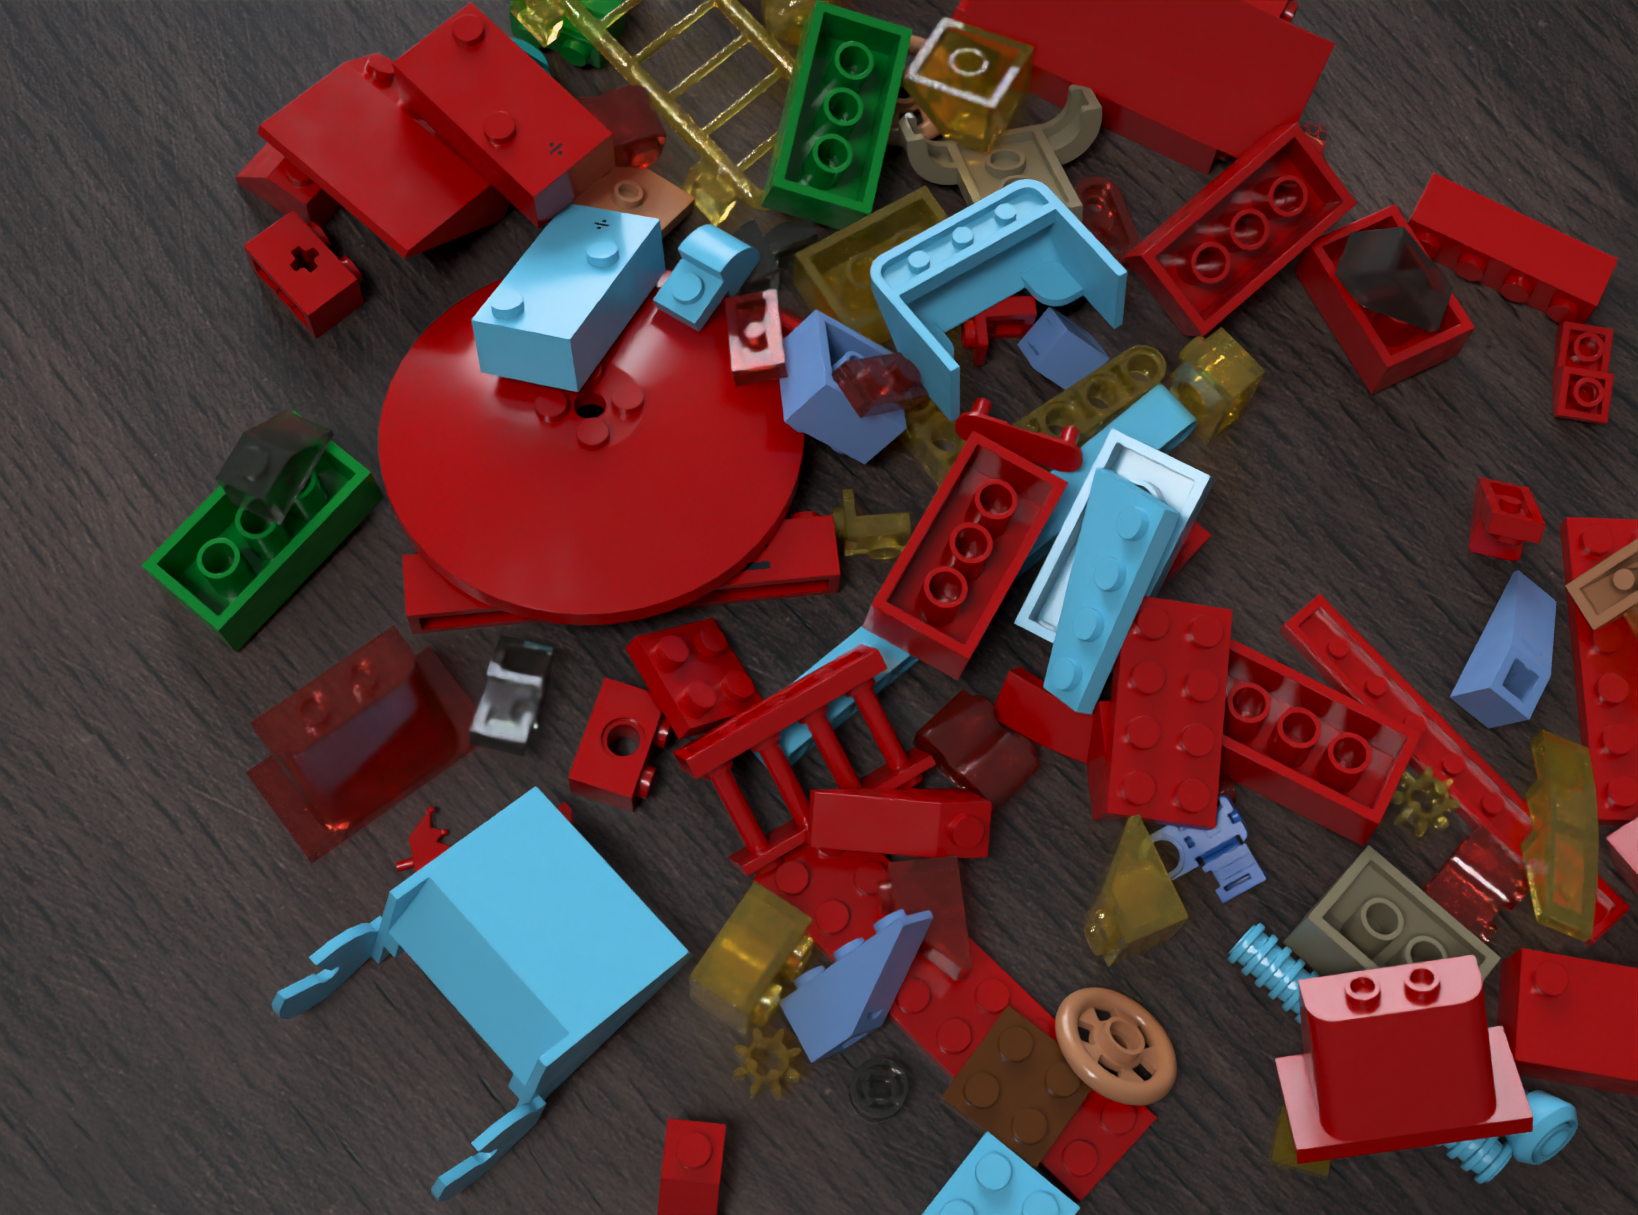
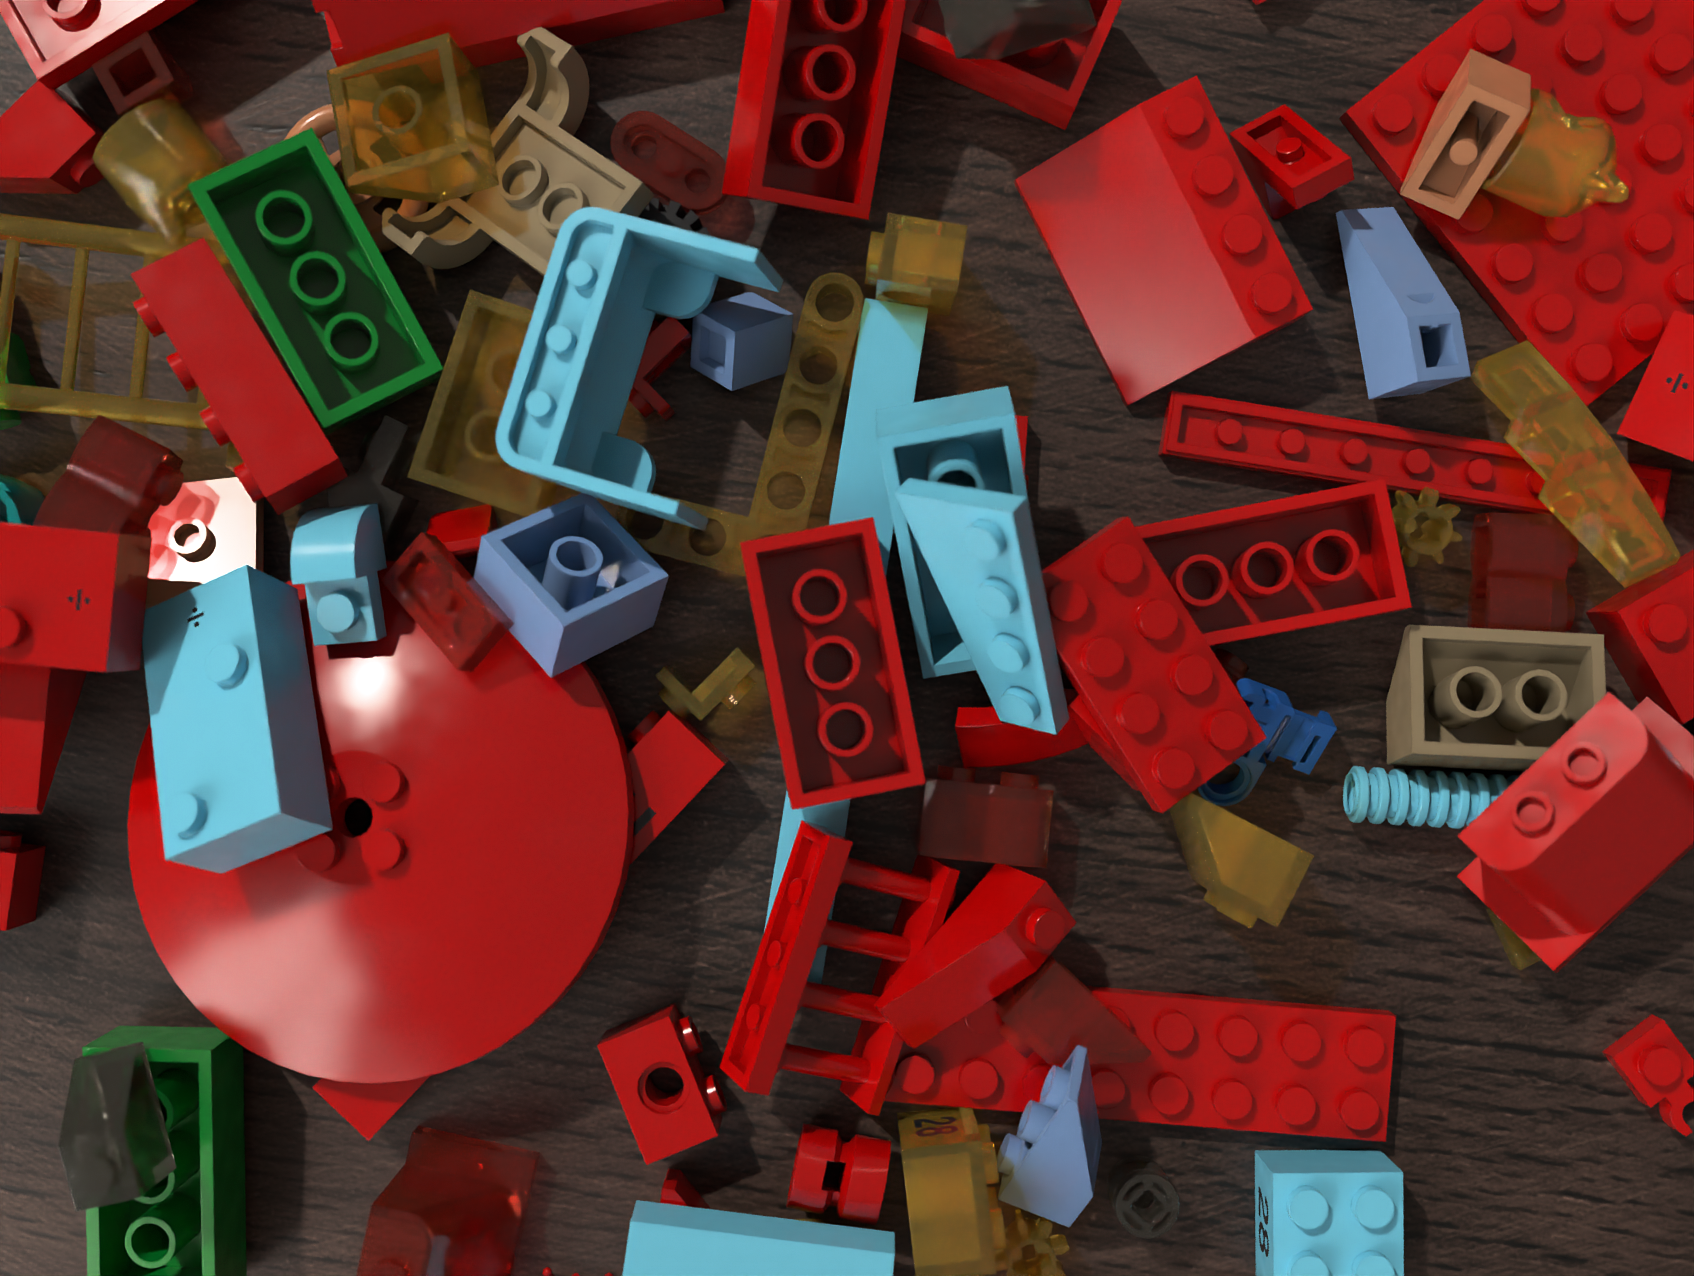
camera: 30 degrees left, 20 degrees up
(513, 695) = (530, 1121): clear smoke brick -> none
(693, 676) = (676, 970): red plate -> none
(703, 904) = (861, 1176): none -> red wheel
(745, 127) = (239, 377): none -> red brick
(880, 384) = (608, 562): clear red plate -> none
(1017, 1088) = (1265, 1101): reddish brown plate -> none
(1042, 449) = (832, 474): red piece -> none
(1116, 1045) = (1303, 1039): nougat plate -> none
(1382, 503) = (1162, 242): none -> red slope

